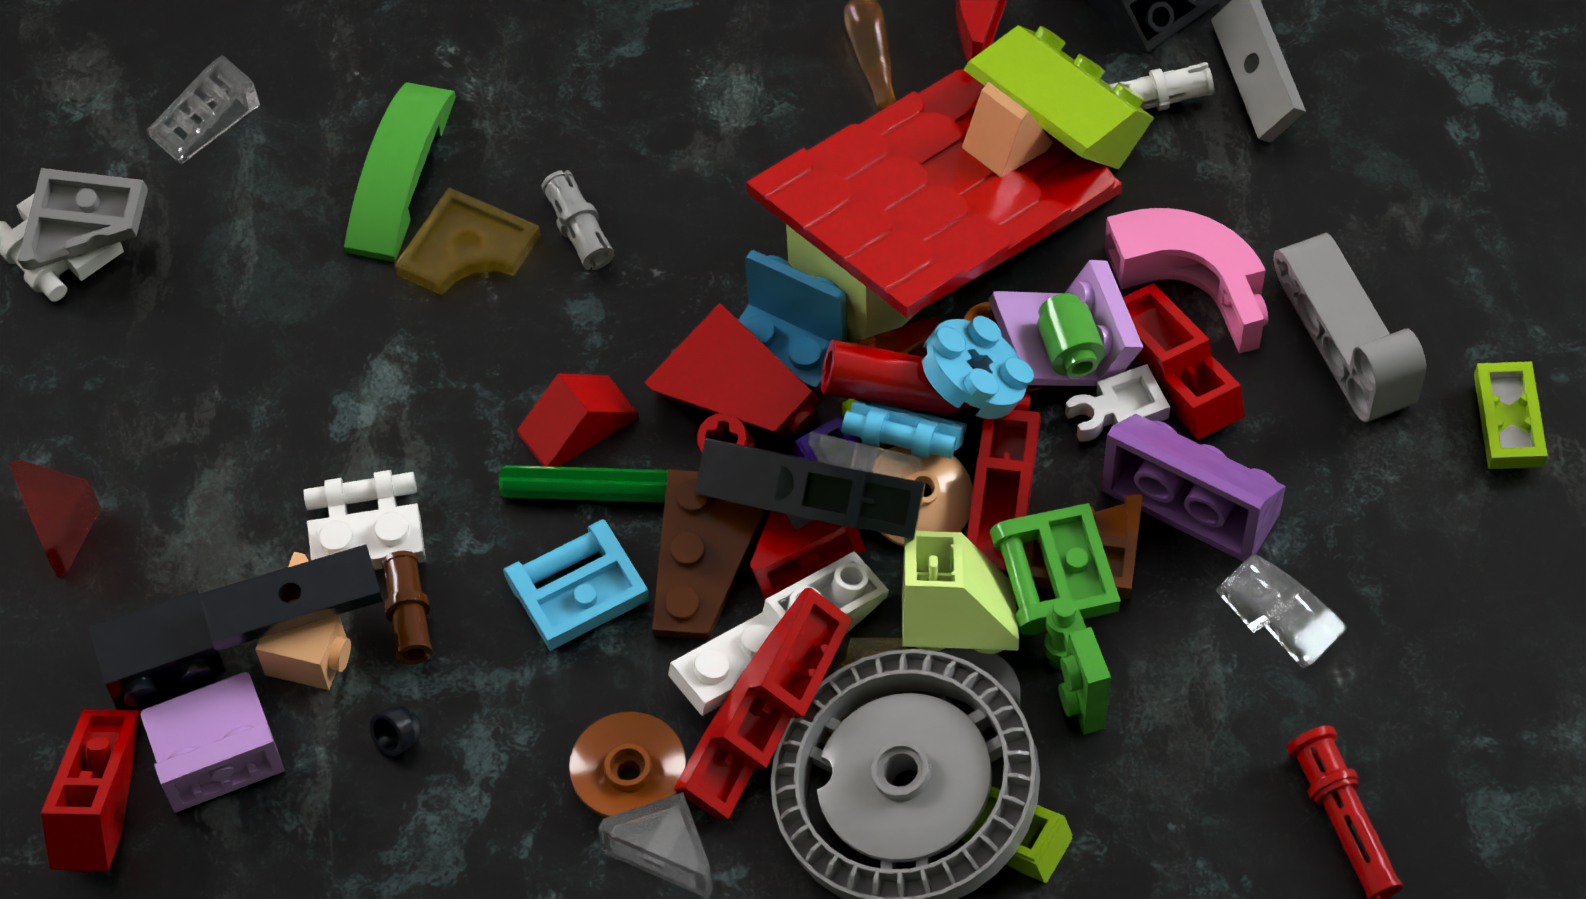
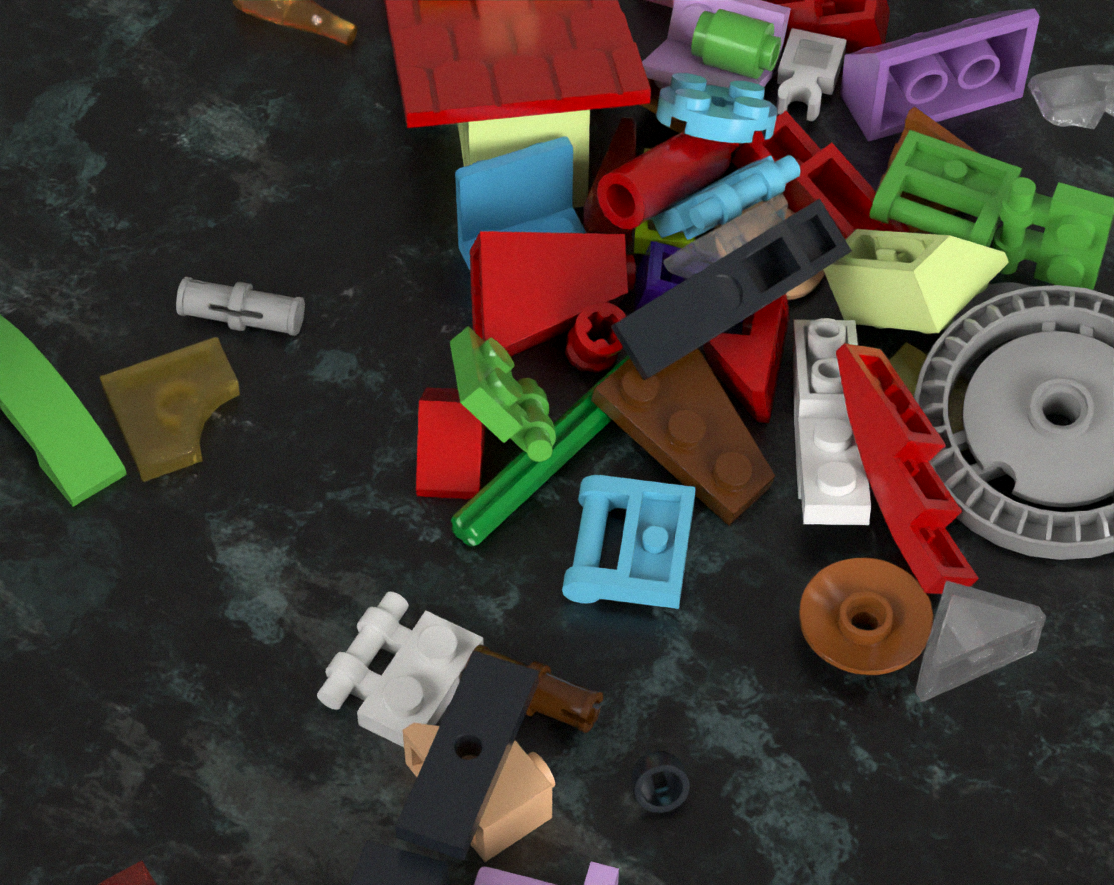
camera: 55 degrees left, 5 degrees down
(600, 403) = (499, 401): none -> bright green plate

